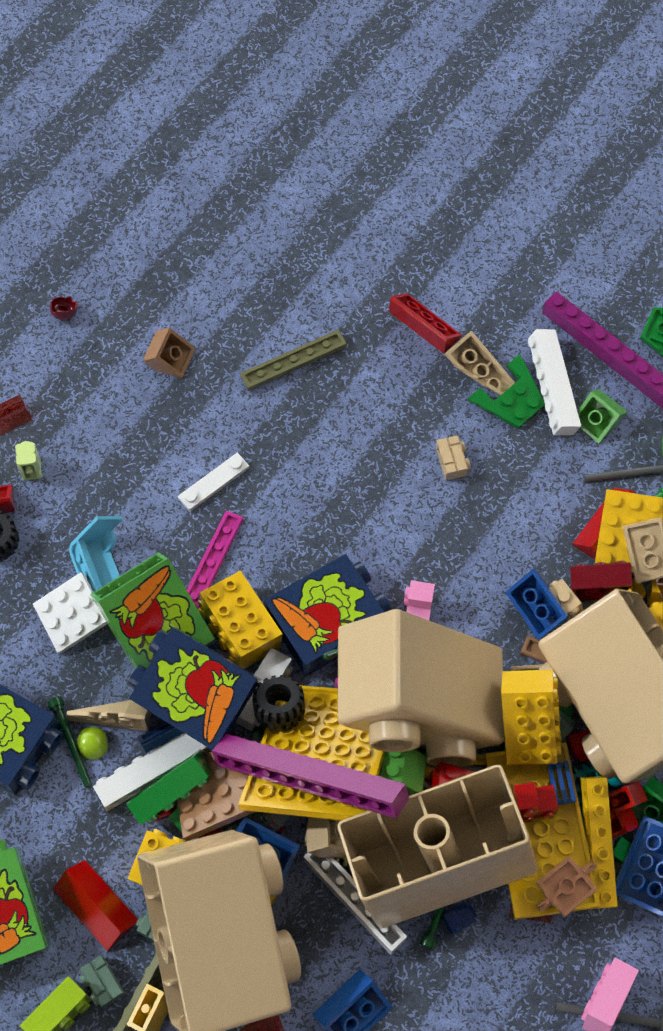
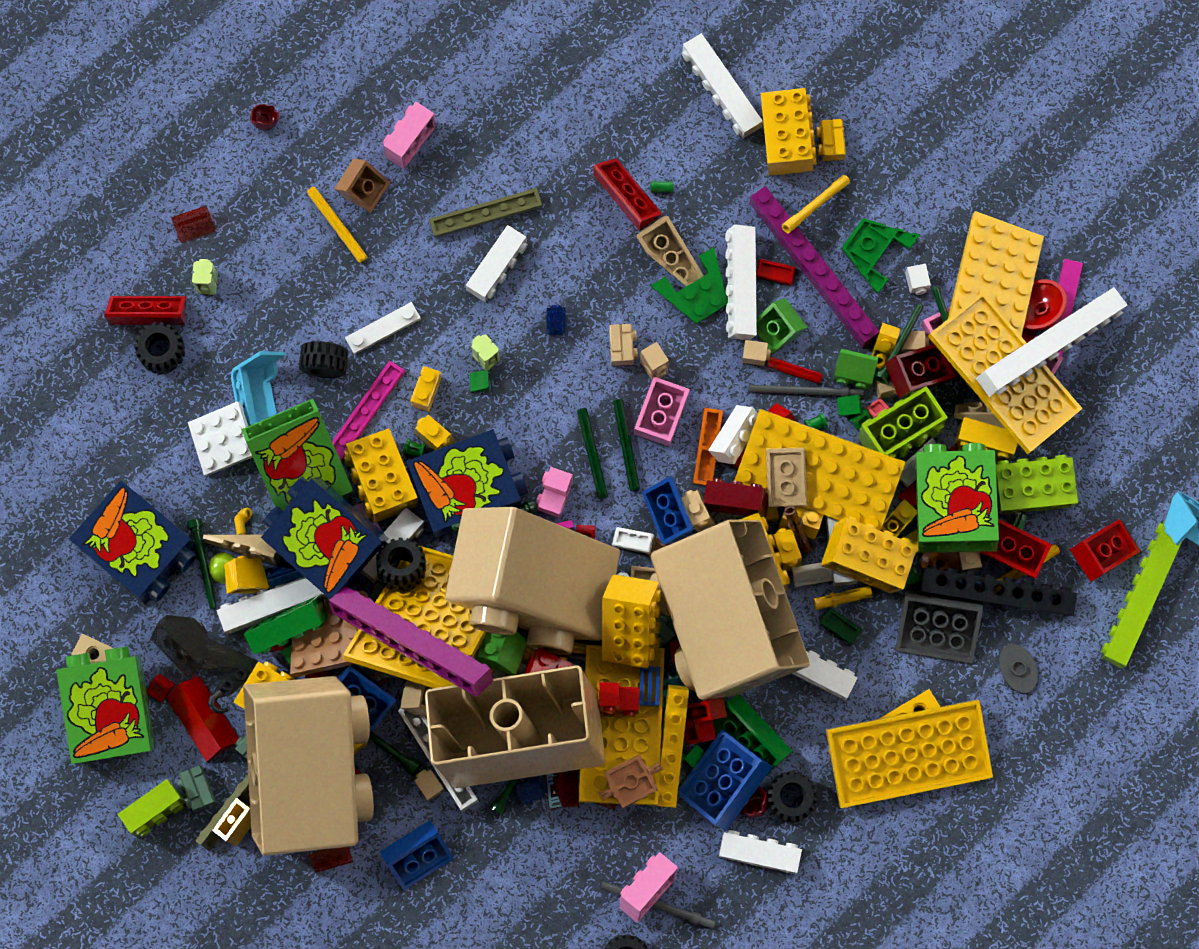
camera: 10 degrees right, 10 degrees up
(45, 880) = (160, 688): none -> red slope
(71, 832) = (190, 649): none -> clear smoke slope
(103, 690) = (241, 519): none -> yellow arm
(117, 745) = (245, 576): none -> yellow torso
(151, 394) = (337, 225): none -> yellow axle
(161, 518) = (323, 359): none -> black tyre
(207, 300) = (409, 135): none -> bright pink brick
(266, 590) = (409, 444): none -> green bush
(268, 530) = (426, 389): none -> yellow brick
(283, 570) = (433, 433): none -> yellow torso
(313, 404) = (496, 263): none -> white brick
(319, 515) = (479, 381): none -> green slope
(320, 485) = (485, 351): none -> yellowish green brick
(327, 913) = (412, 765): none -> dark green piece
(350, 931) = (428, 784): none -> tan brick
(383, 446) = (556, 320): none -> clear blue brick
(446, 565) = (592, 453): none -> dark green axle
(458, 310) = (661, 187): none -> green pin
(477, 552) = (626, 445): none -> dark green axle
(488, 466) = (654, 361): none -> tan brick
(491, 911) = (562, 790): none -> panel
(492, 215) = (722, 86): none -> white brick
(506, 513) = (661, 411): none -> bright pink brick
(509, 641) = (633, 540): none -> white plate
(558, 539) = (705, 460): none -> orange slope
(565, 241) = (788, 131): none -> yellow brick
(583, 369) = (775, 272): none -> red tile
(583, 444) = (755, 353): none -> tan brick
(584, 522) = (734, 435): none -> white brick
(594, 314) = (796, 220): none -> yellow piece
(606, 244) = (832, 140): none -> yellow brick
(624, 454) = (794, 370): none -> red axle

